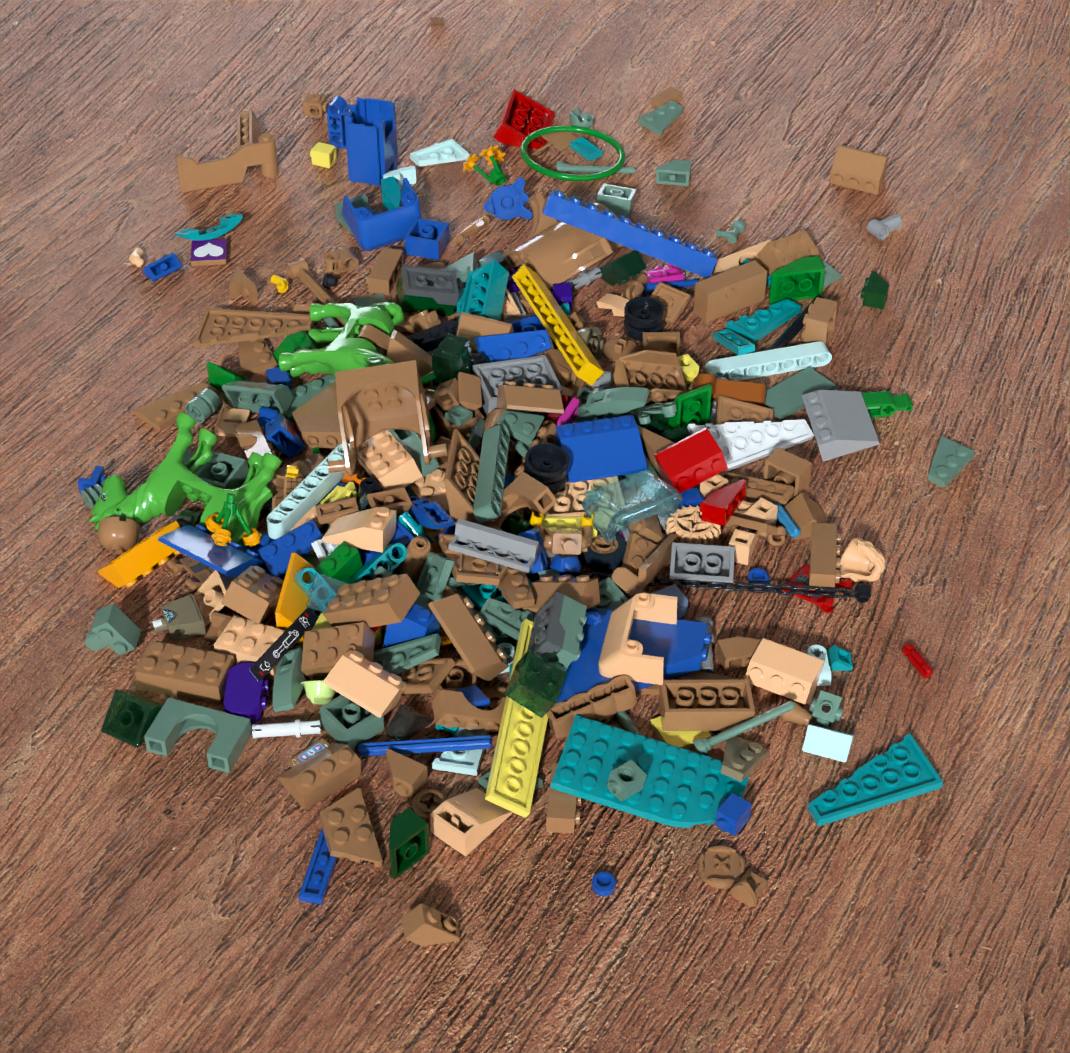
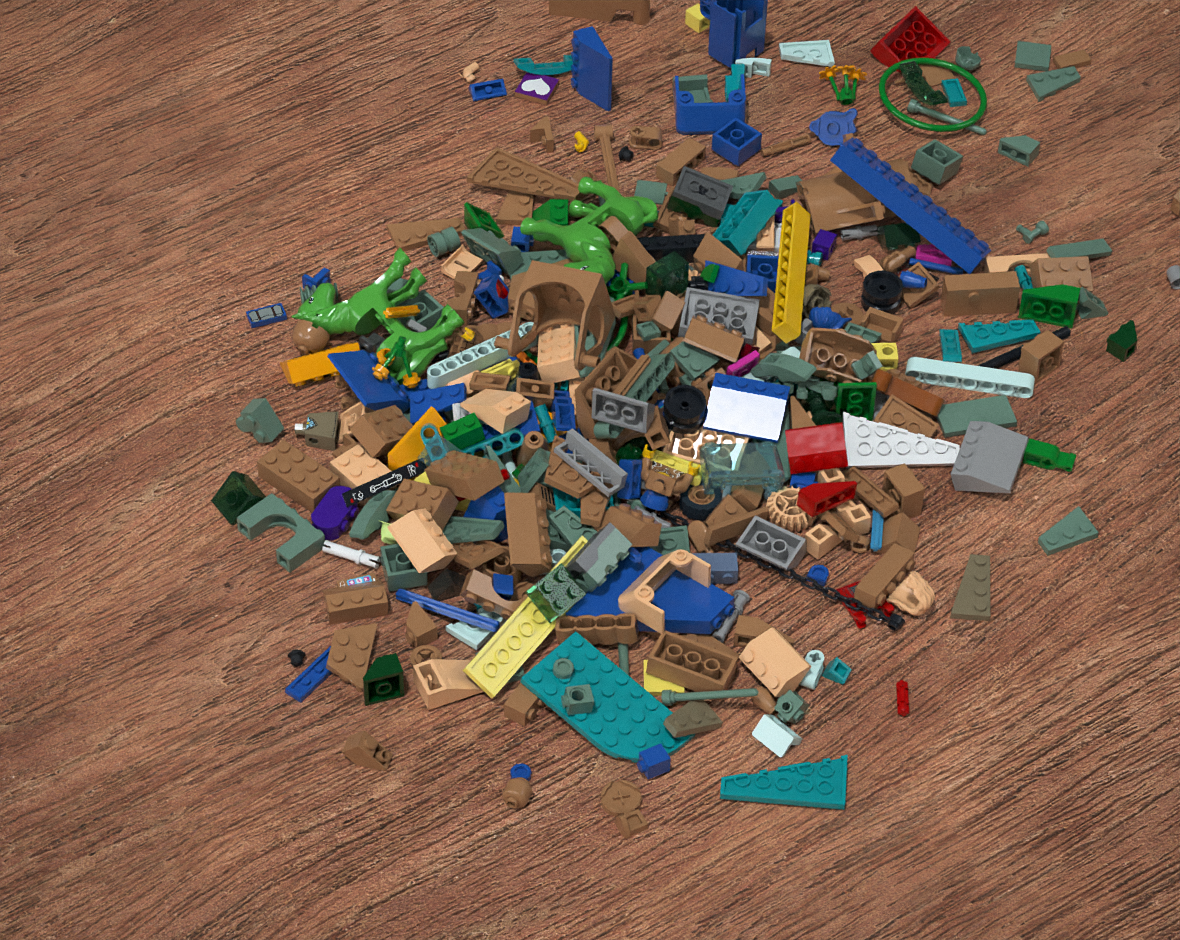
camera: 25 degrees right, 5 degrees up
(57, 531) = (266, 315): none -> tile
(208, 474) = (401, 311): none -> light orange axle
(228, 484) = (411, 324): none -> light grey tile
(260, 214) = (591, 67): none -> blue slope
(291, 857) = (296, 657): none -> black piece
(480, 458) = (633, 375): none -> medium nougat axle
(486, 346) = (710, 272): none -> green tile
(500, 483) = (622, 410): none -> light grey slope
(548, 142) = (920, 88): none -> clear green slope
(589, 755) = (563, 668): none -> sand green tile
(609, 355) = (826, 318): none -> blue hair
(615, 904) = (517, 793): none -> medium nougat head
(631, 103) = (1032, 56): none -> sand green tile
(667, 297) = (912, 280): none -> blue cone
(683, 376) = (866, 365): none -> sand green bracket
(785, 230) = (1090, 248): none -> sand green tile
(909, 544) = (974, 591): none -> dark tan wing

